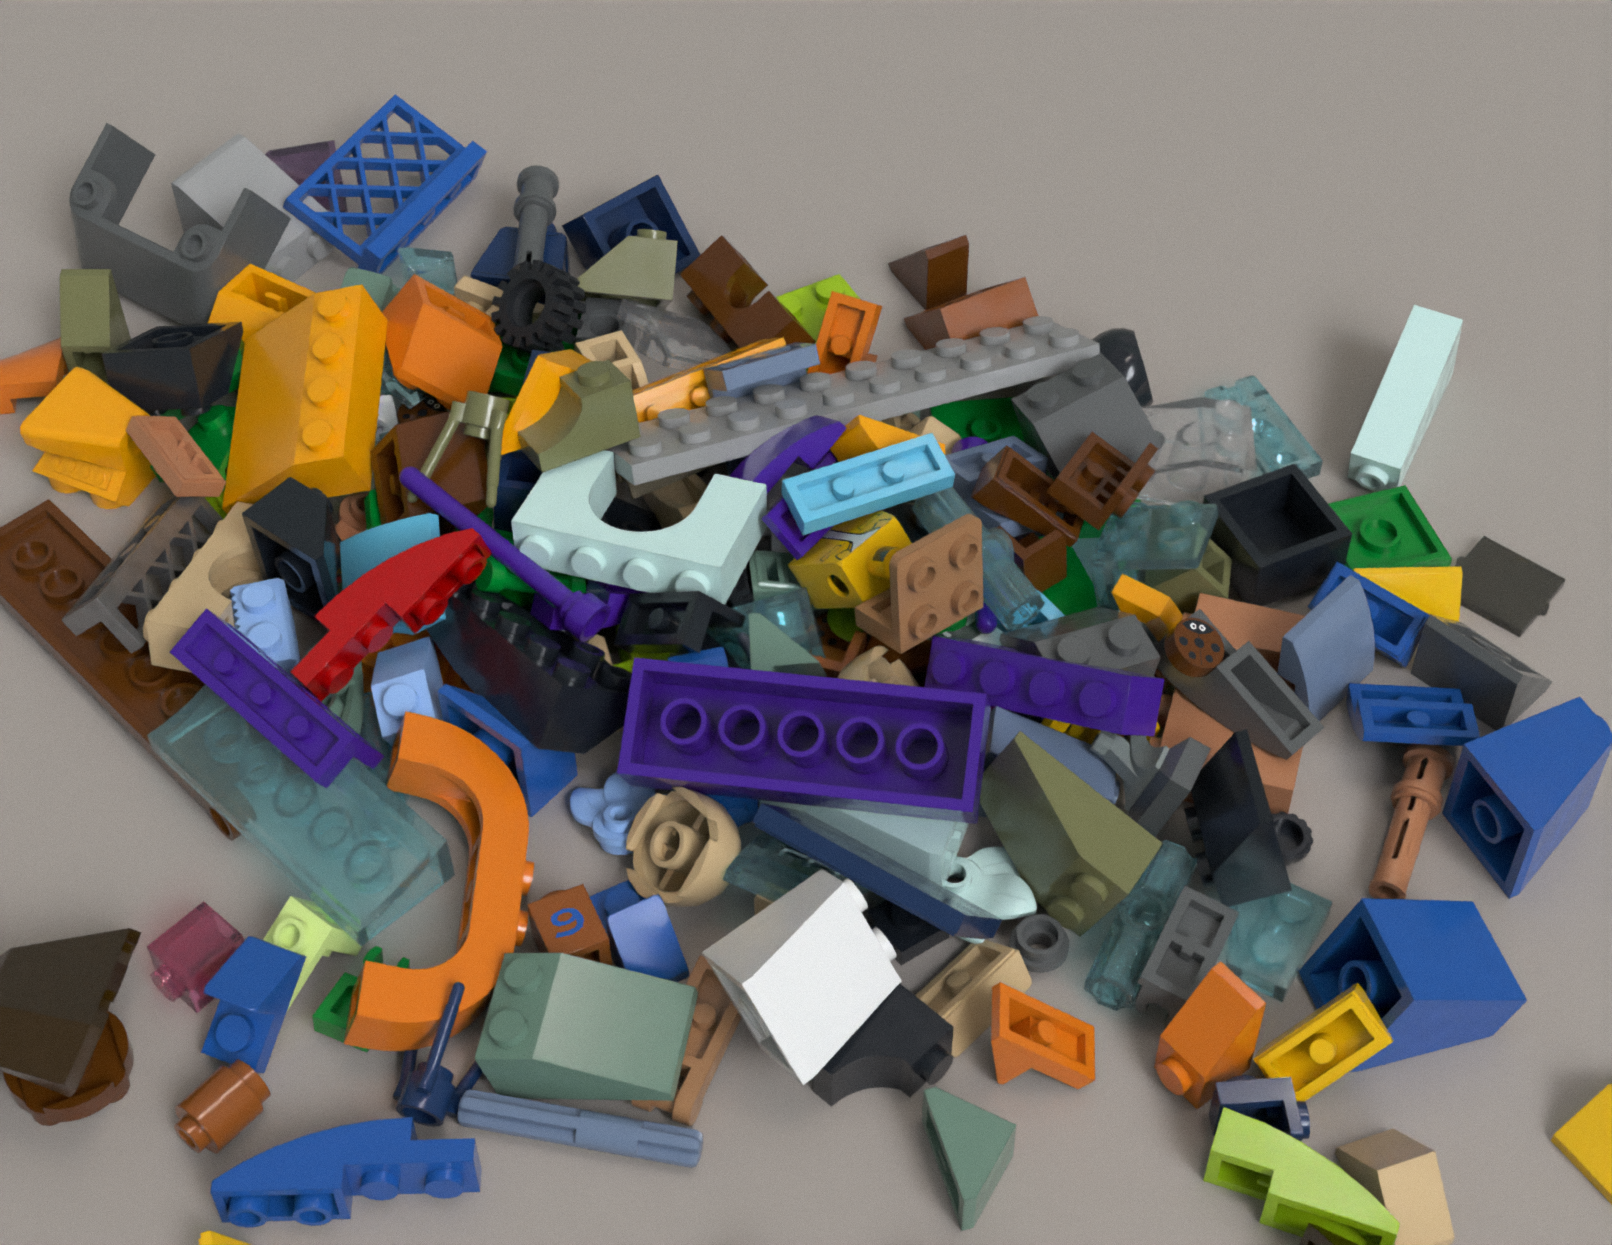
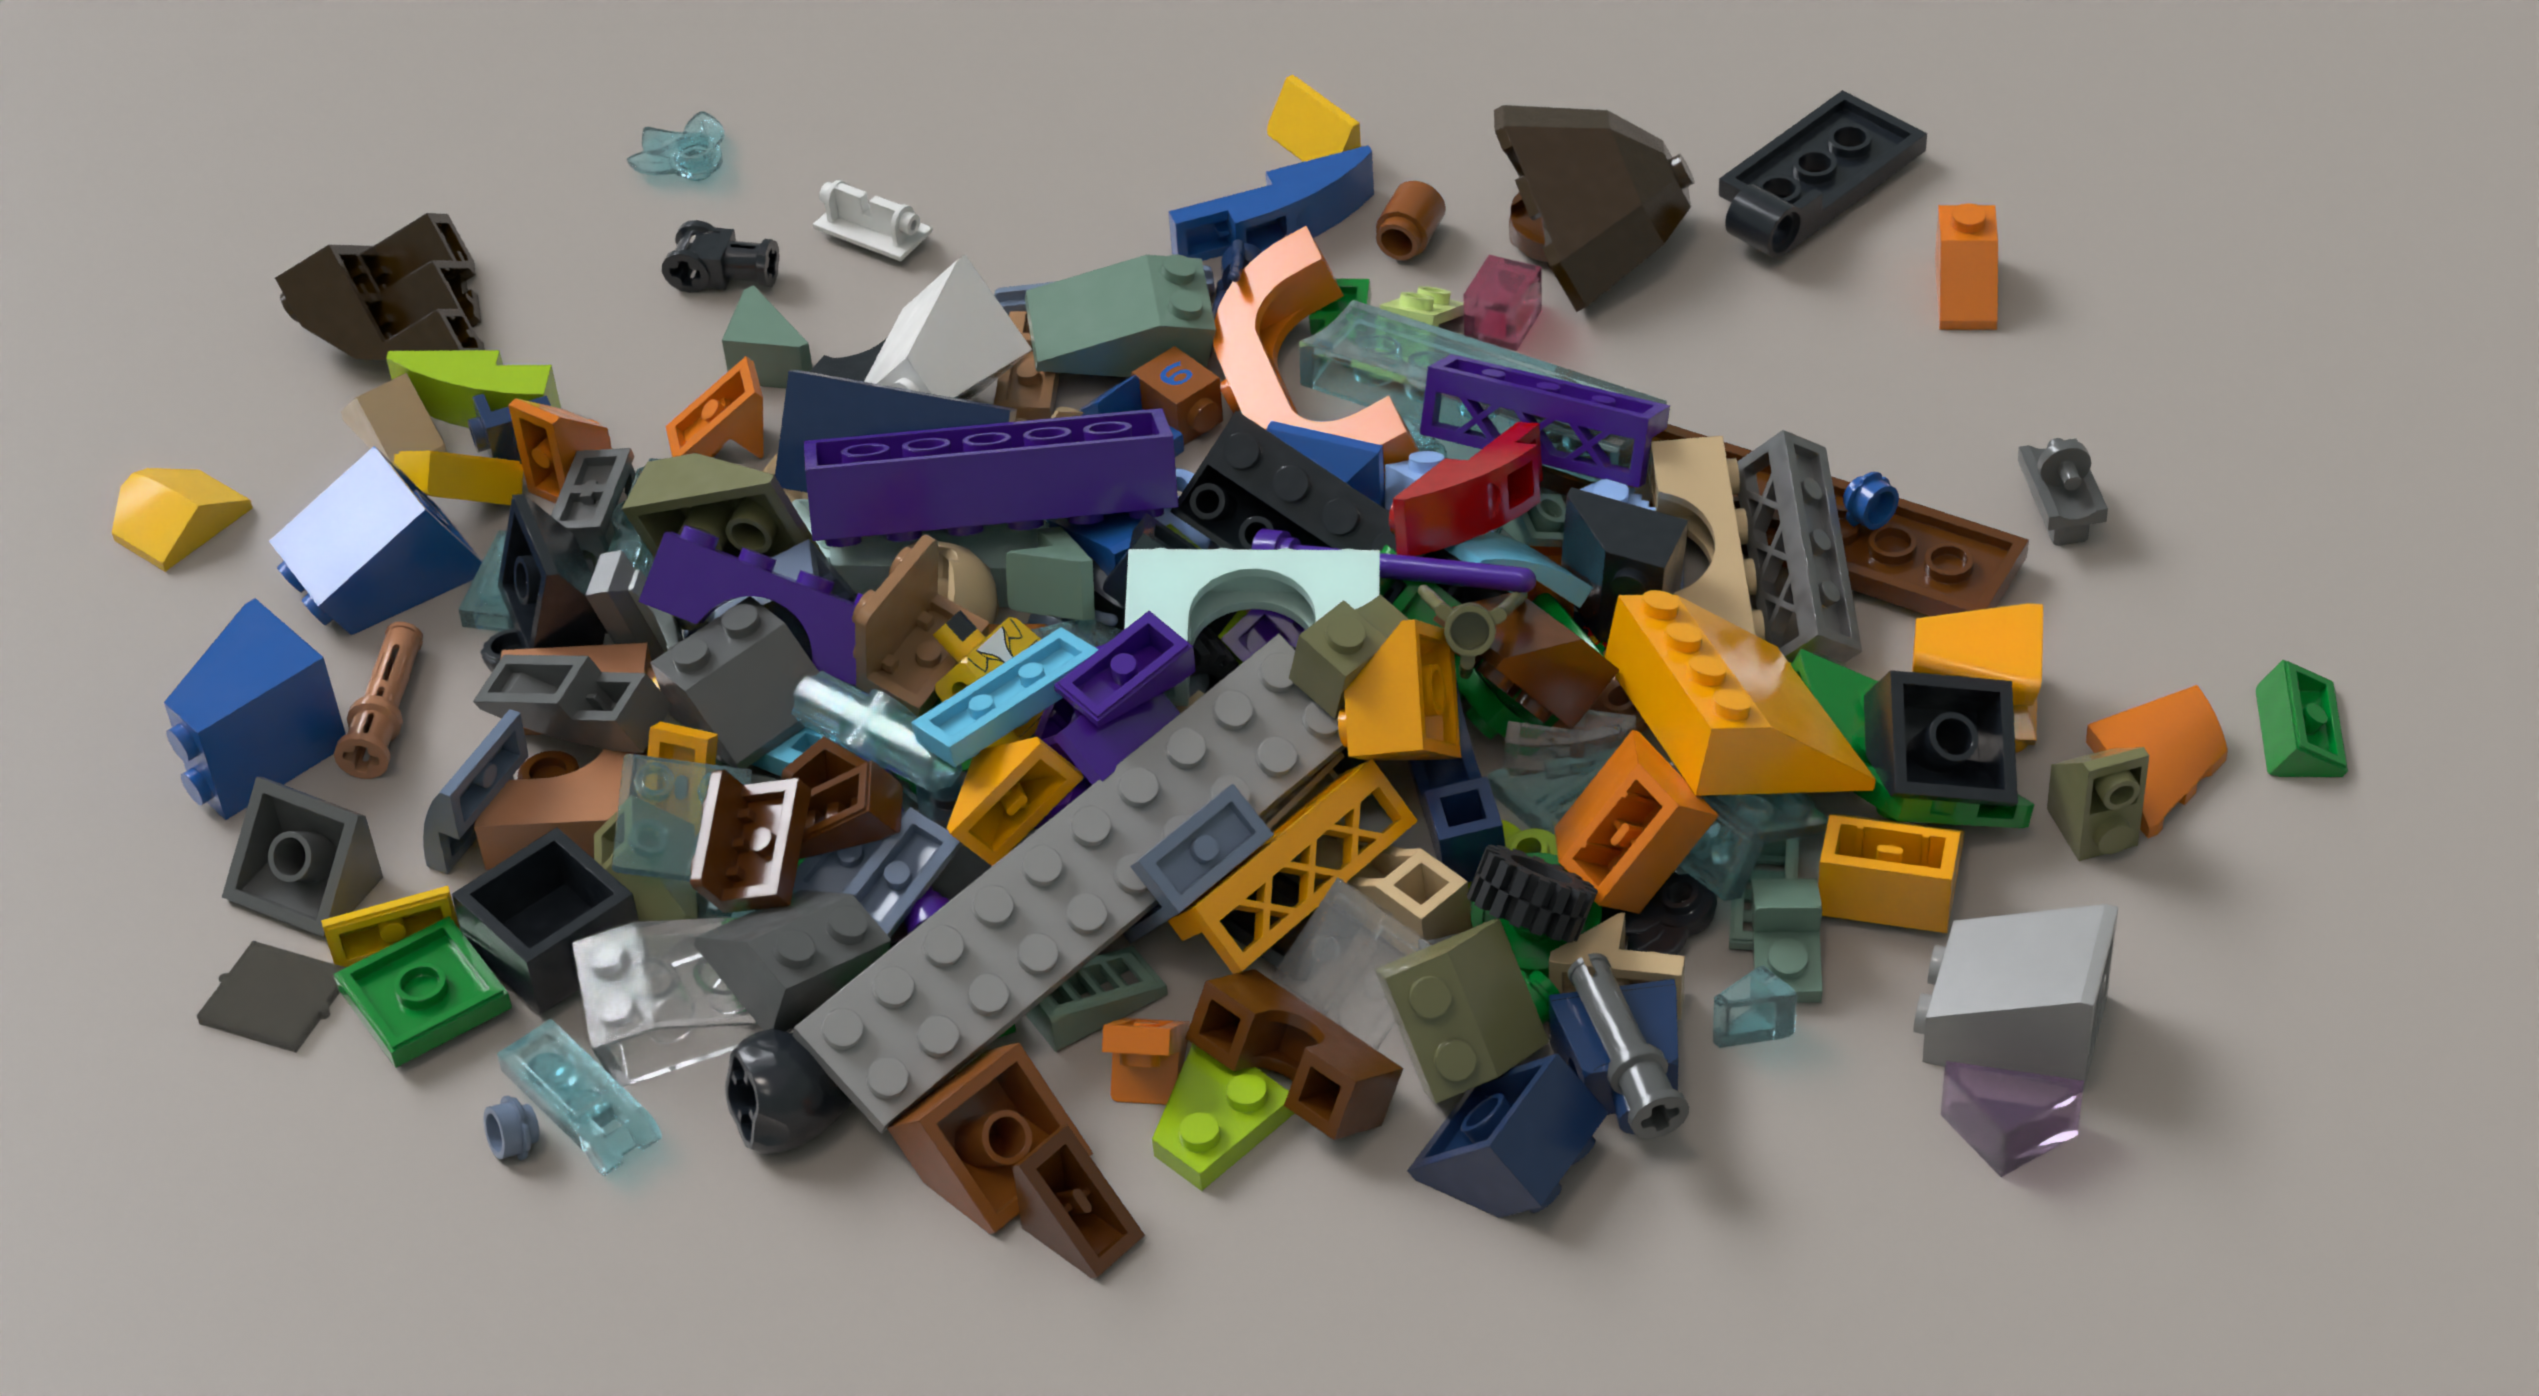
camera: 165 degrees right, 5 degrees down
(56, 592) = (1870, 500): none -> blue plate
(168, 282) = (2051, 862): dark grey windscreen -> none
(175, 456) = (1846, 630): nougat plate -> none
(253, 1002) = (1425, 255): blue slope -> none
(410, 217) = (1830, 1093): blue fence -> none
(766, 448) = (1128, 670): none -> dark purple slope
(1194, 647) = (614, 666): reddish brown tile -> none
(1315, 420) = (510, 1128): none -> sand blue plate
(1394, 620) = (421, 864): blue slope -> none
(1406, 399) = (386, 1159): light aqua slope -> none
(1410, 714) = (380, 764): blue slope -> none

